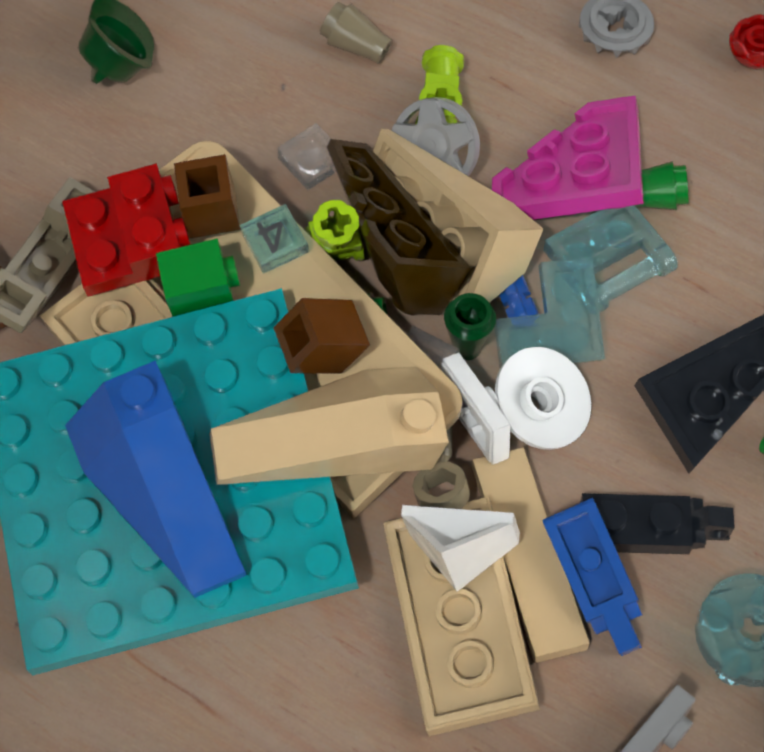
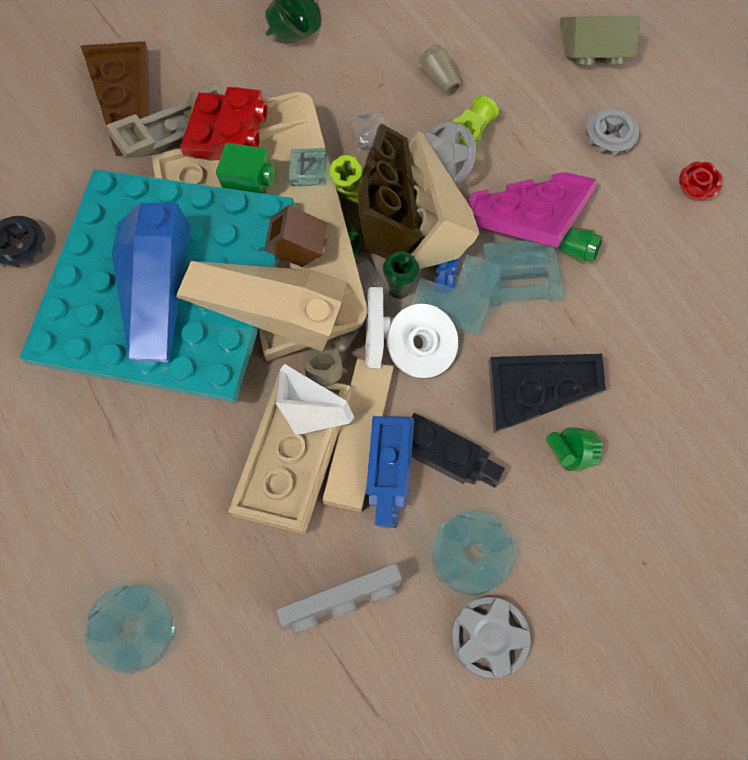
camera: 25 degrees right, 5 degrees up
(207, 196) = (277, 121): reddish brown brick -> none

